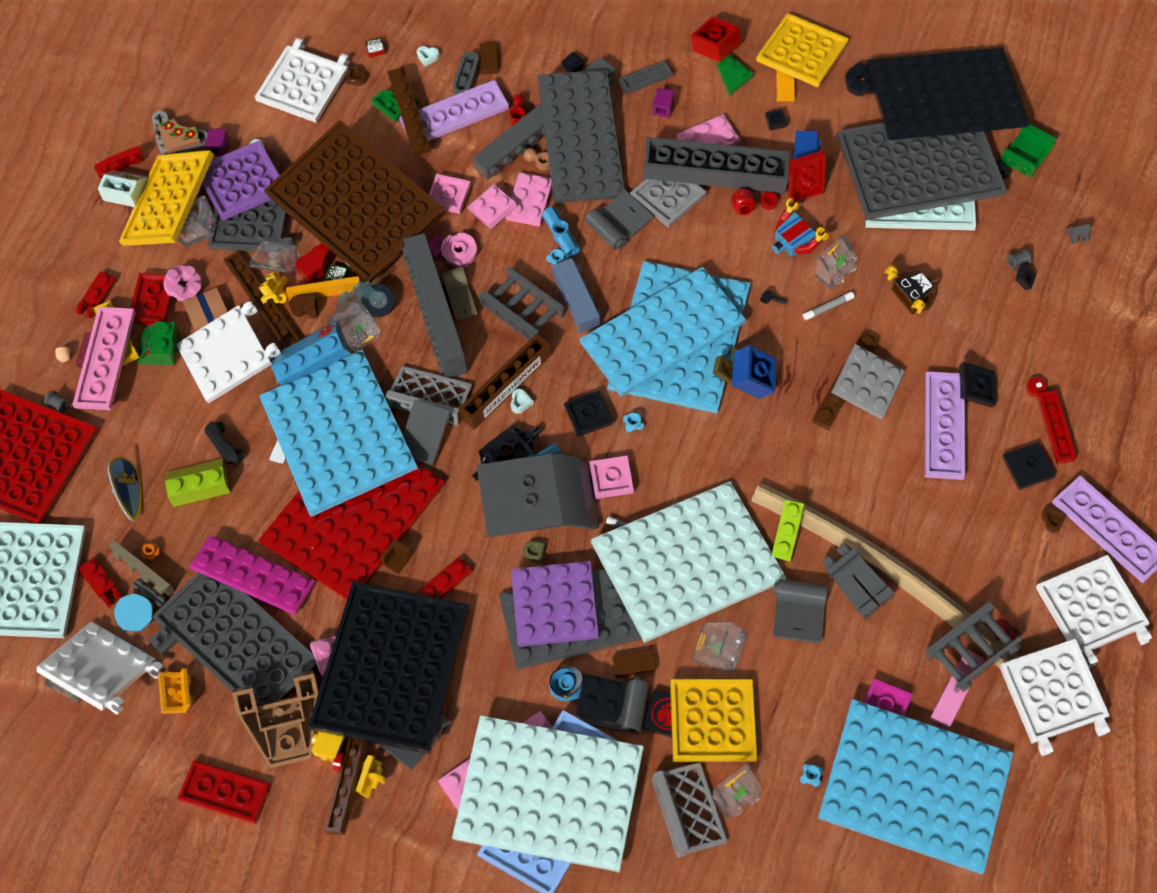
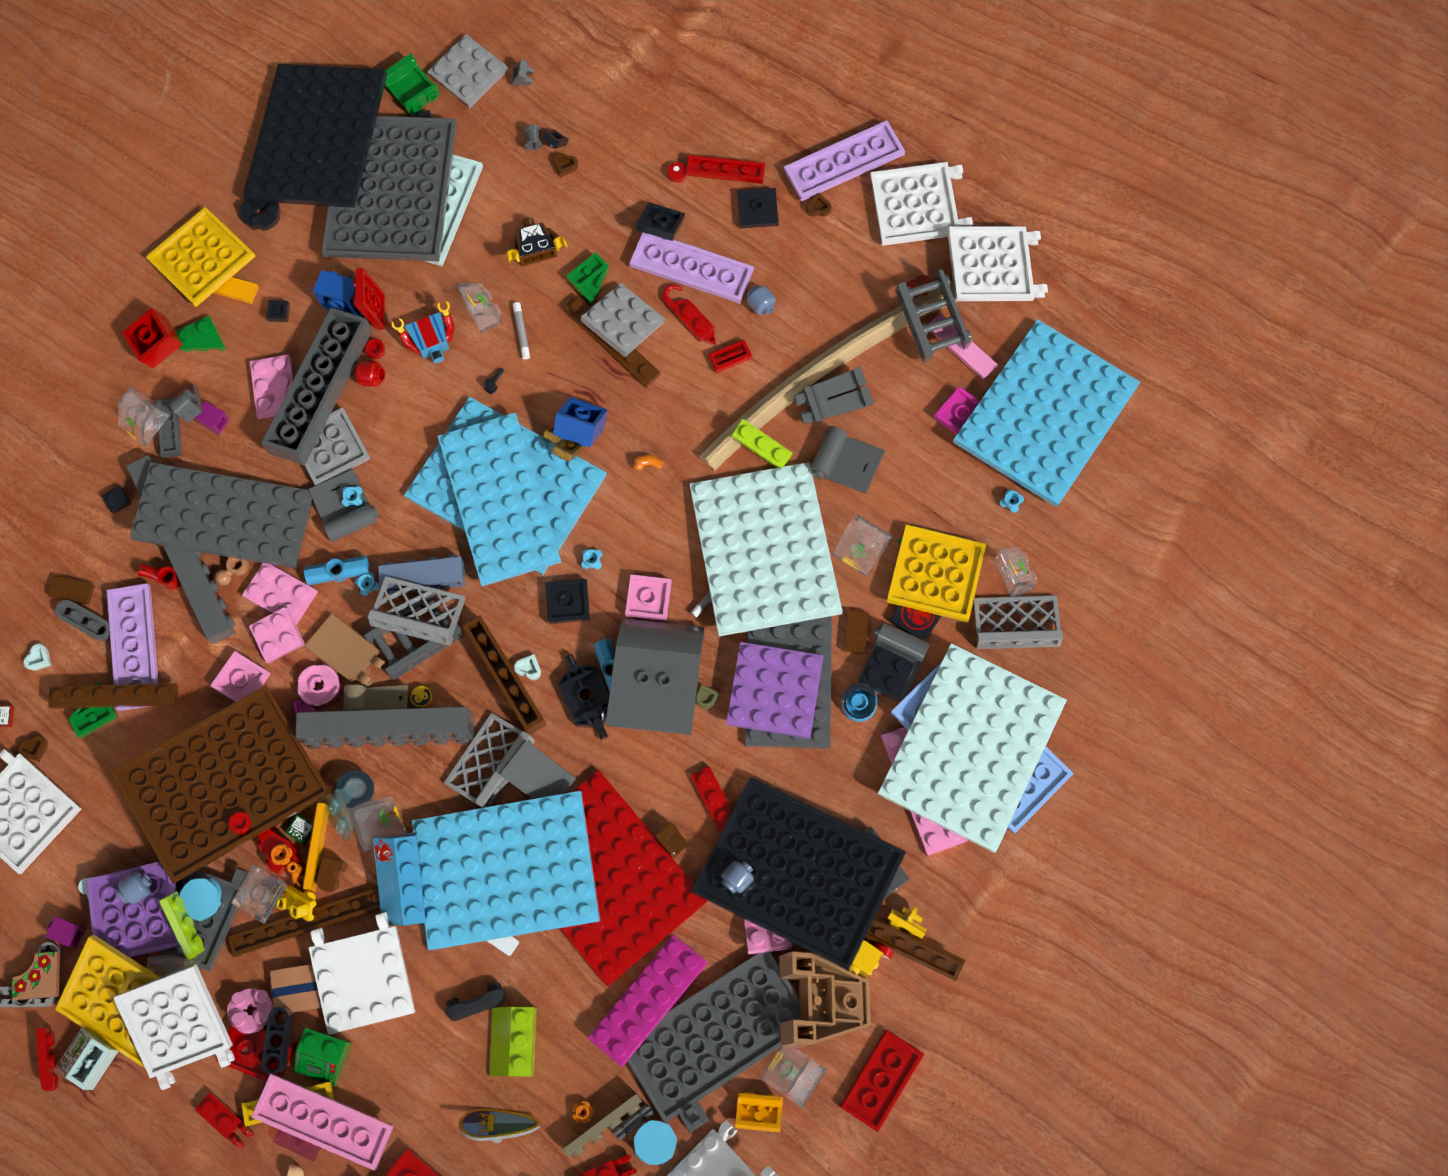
camera: 75 degrees left, 10 degrees up
(153, 307) = (270, 1049): none -> black beam
(155, 229) = (174, 1023): none -> white plate
(211, 712) = (793, 1074): none -> clear slope
(235, 211) = (182, 925): none -> lime plate
(256, 170) = (134, 888): none -> sand blue head
(261, 219) = (201, 898): none -> medium azure hat
(300, 280) = (296, 873): none -> orange arm
(308, 258) = (275, 854): none -> orange plate
(324, 222) = (239, 822): none -> red tile
(371, 612) = (737, 876): none -> sand blue head
(471, 328) = (421, 697): none -> yellow tile
(492, 260) = (345, 650): none -> medium nougat tile
(524, 296) = (408, 625): none -> light grey fence
(628, 217) = (347, 492): none -> medium azure plate
(648, 53) = (140, 416): none -> clear slope
(667, 79) = (187, 403): none -> dark grey plate
(738, 436) = (648, 459): none -> orange arm
(874, 498) = (718, 368): none -> red tile
(895, 438) = (690, 316): none -> red plate
(900, 344) = (589, 277): none -> green wing
(933, 493) = (761, 300): none -> sand blue head
(1005, 294) = (565, 164): none -> reddish brown tile
(1063, 191) = (467, 71): none -> light grey plate

